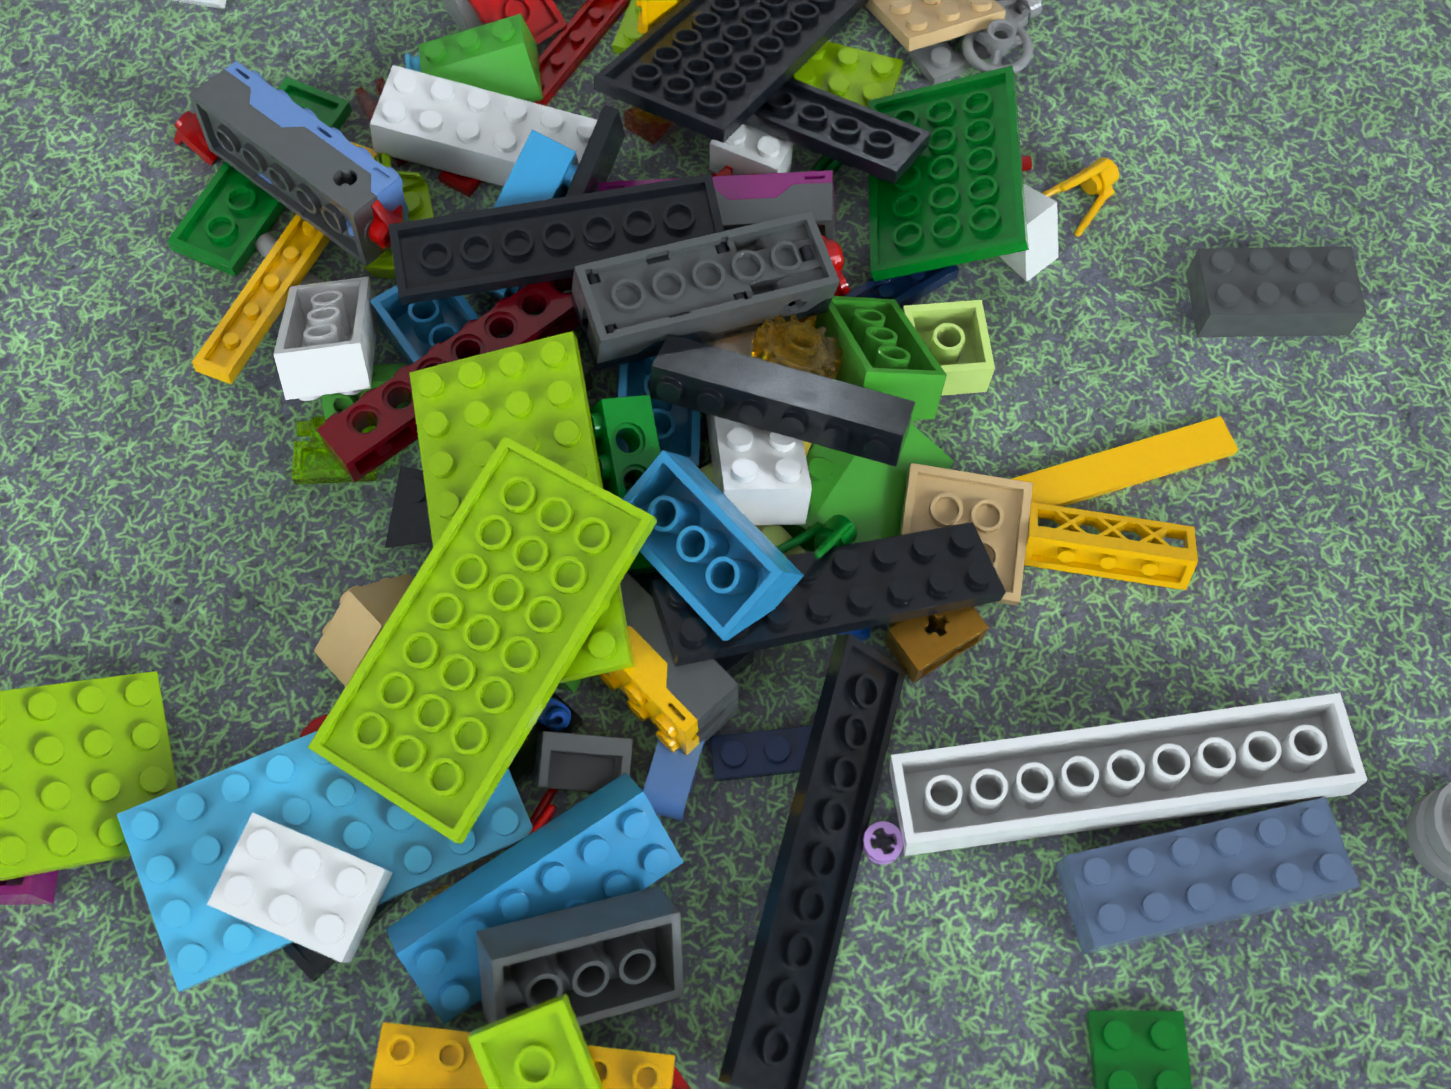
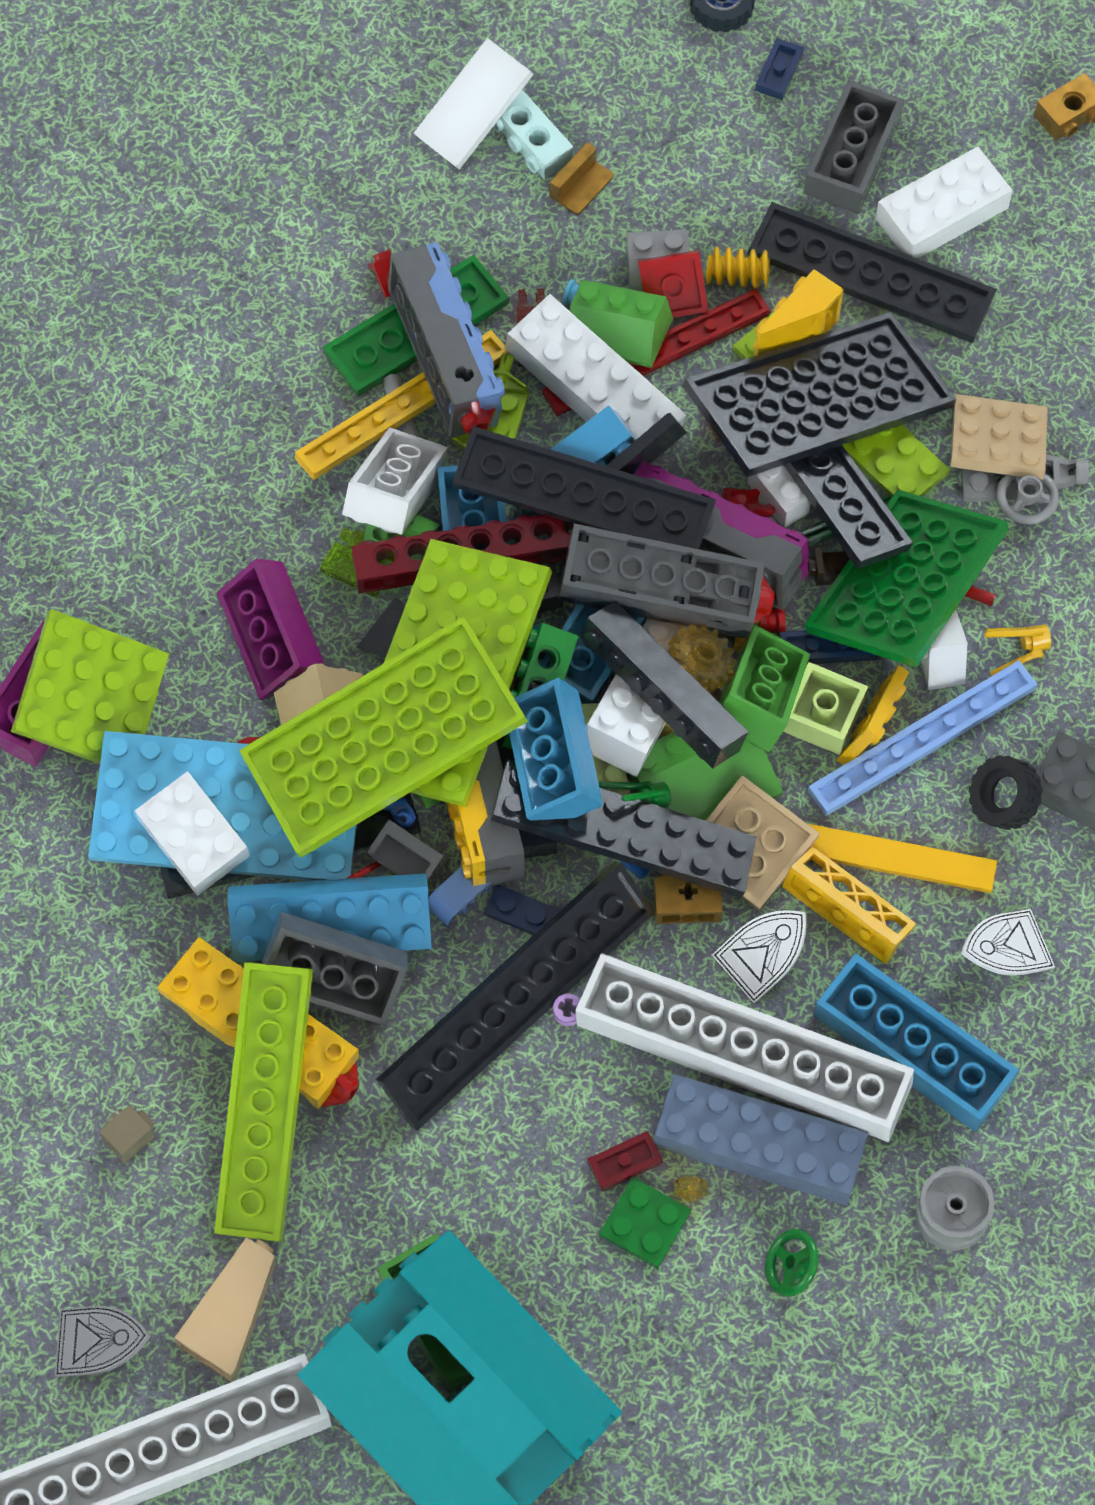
camera: 30 degrees right, 0 degrees up
(265, 575) = (269, 625): none -> magenta slope
(852, 208) = (826, 565): none -> dark brown bracket
(1006, 329) = (878, 712): none -> yellow wing
(1056, 334) = (922, 738): none -> light blue plate
(1056, 648) = (763, 951): none -> white shield
(1068, 996) = (625, 1161): none -> dark red plate
(1167, 316) = (1026, 800): none -> black tyre
(1167, 986) = (690, 1188): none -> clear yellow tile
(1291, 654) = (899, 1026): none -> dark azure brick
(1300, 498) = (1008, 945): none -> white shield
(1358, 998) = (796, 1265): none -> green piece

